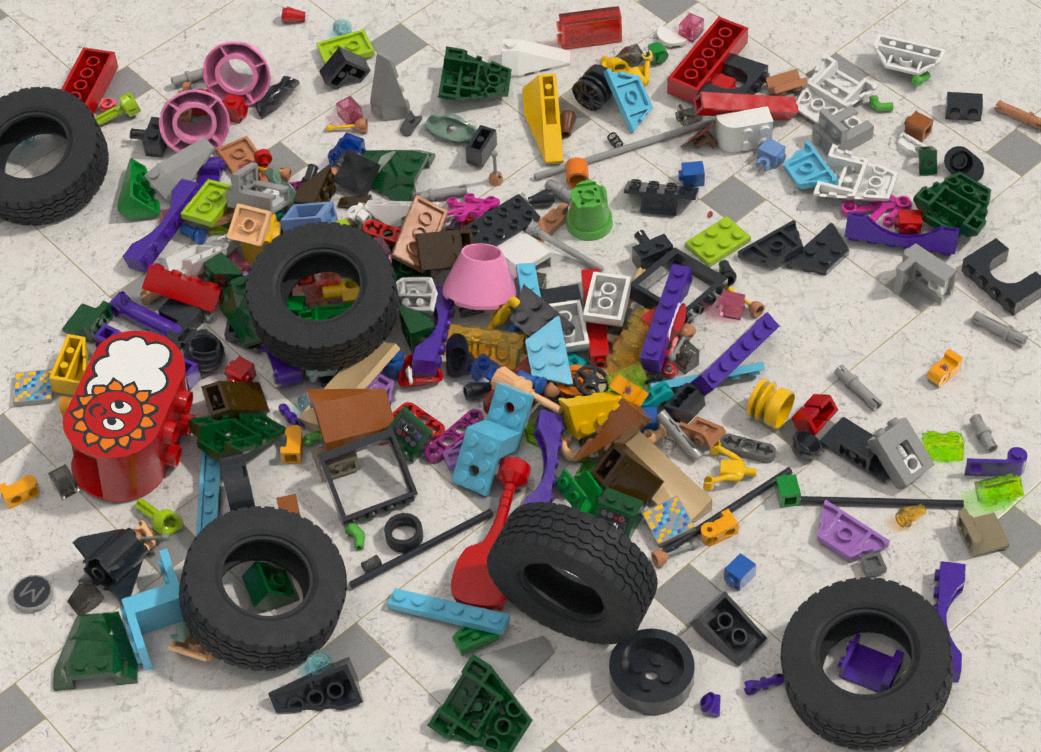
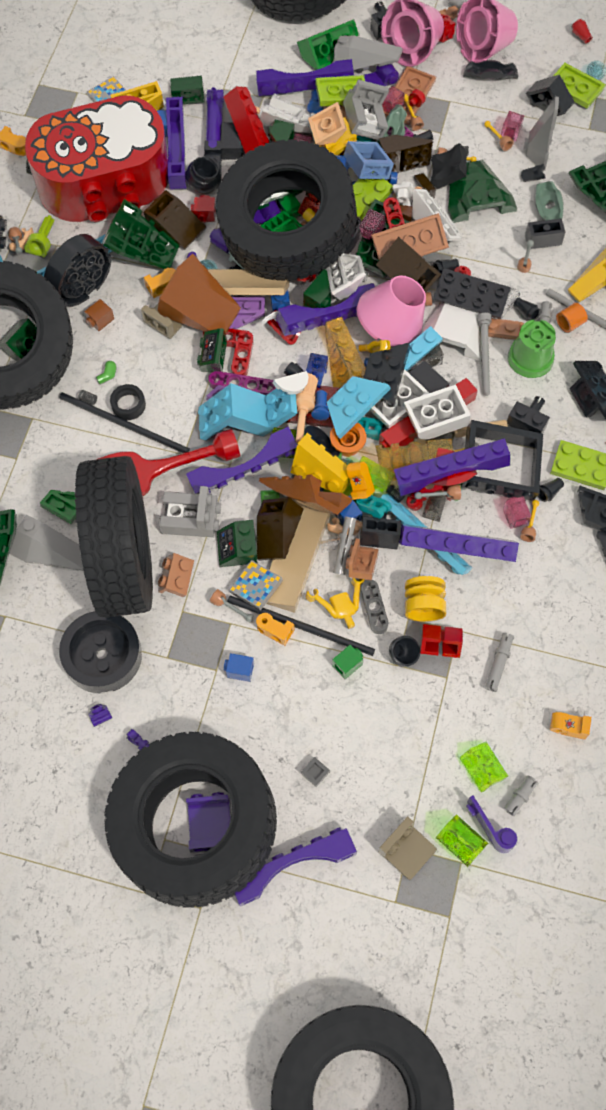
camera: 55 degrees right, 15 degrees up
(236, 108) = (454, 51): red brick -> none
(349, 142) = (474, 142): clear blue bracket -> none
(353, 447) = (128, 330): black window -> none
(443, 193) = (477, 236): light grey pin -> none
(448, 611) = (69, 461): medium azure plate -> none
(458, 356) = (316, 343): black piece -> none
(462, 210) = (471, 263): dark pink plant -> none
(506, 380) = (293, 383): none -> white tile
(550, 392) = (325, 425): nougat hinge -> none
(567, 453) = (285, 465): light nougat piece -> none
(580, 492) = (247, 491): green piece -> none
(591, 381) = (352, 448): black wheel -> none
(728, 629) = (177, 689): black slope -> none
(847, 535) = (333, 734): medium lavender wing -> none
(849, 442) = (435, 702): black bracket -> none
(883, 501) = (390, 747): black piece -> none
(897, 446) = (445, 718): light grey brick -> none
(909, 515) = (387, 776): clear yellow cone -> none

